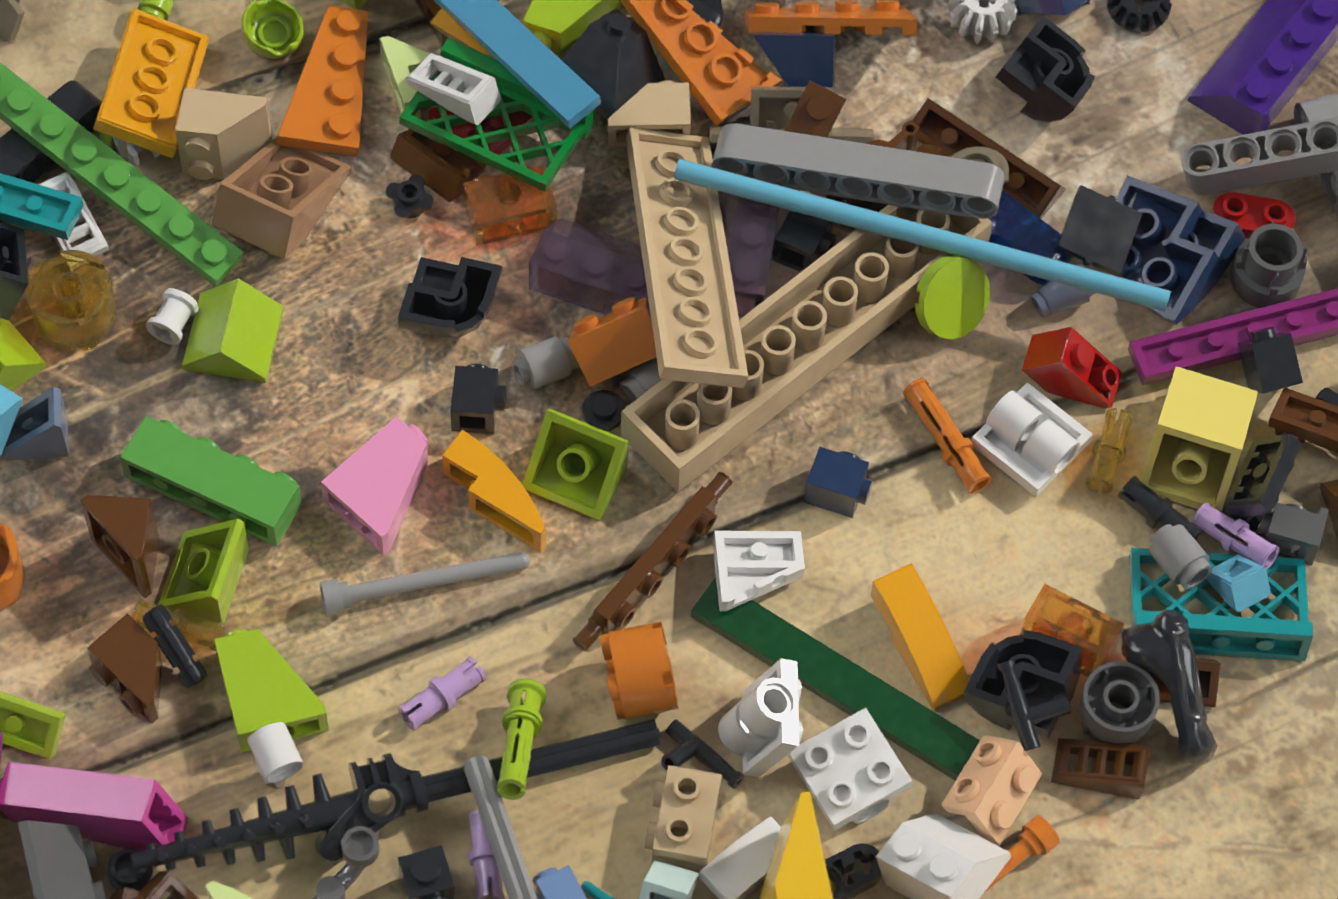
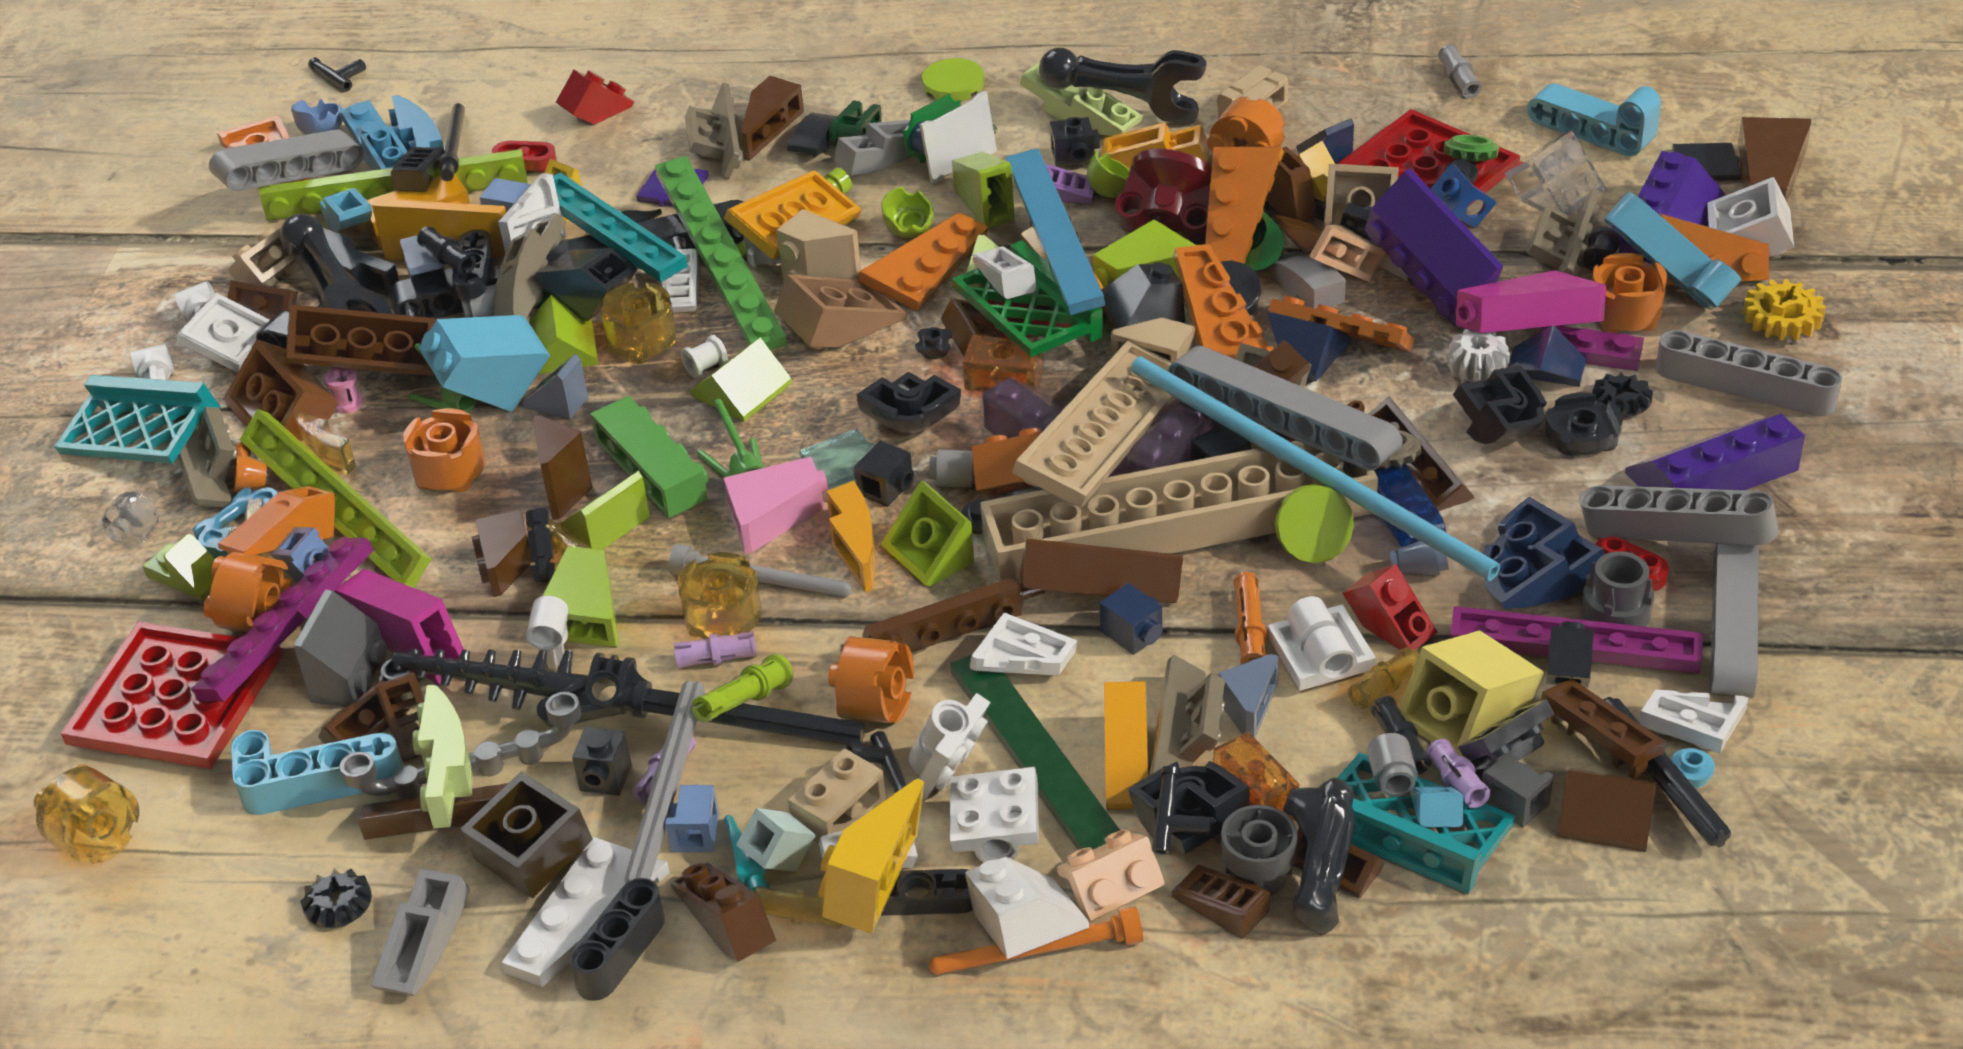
camera: 35 degrees right, 20 degrees down
(319, 447) = (740, 461): none -> bright green plant
(407, 389) = (838, 456): none -> clear light blue piece
(419, 656) = (719, 596): none -> clear yellow brick
(781, 443) = (1099, 569): none -> reddish brown slope
(963, 580) = (1187, 715): none -> dark tan bracket
(998, 528) = (1250, 691): none -> sand blue slope
(1099, 230) = (1475, 518): black piece -> none
(1120, 77) = (1598, 433): none -> black plate

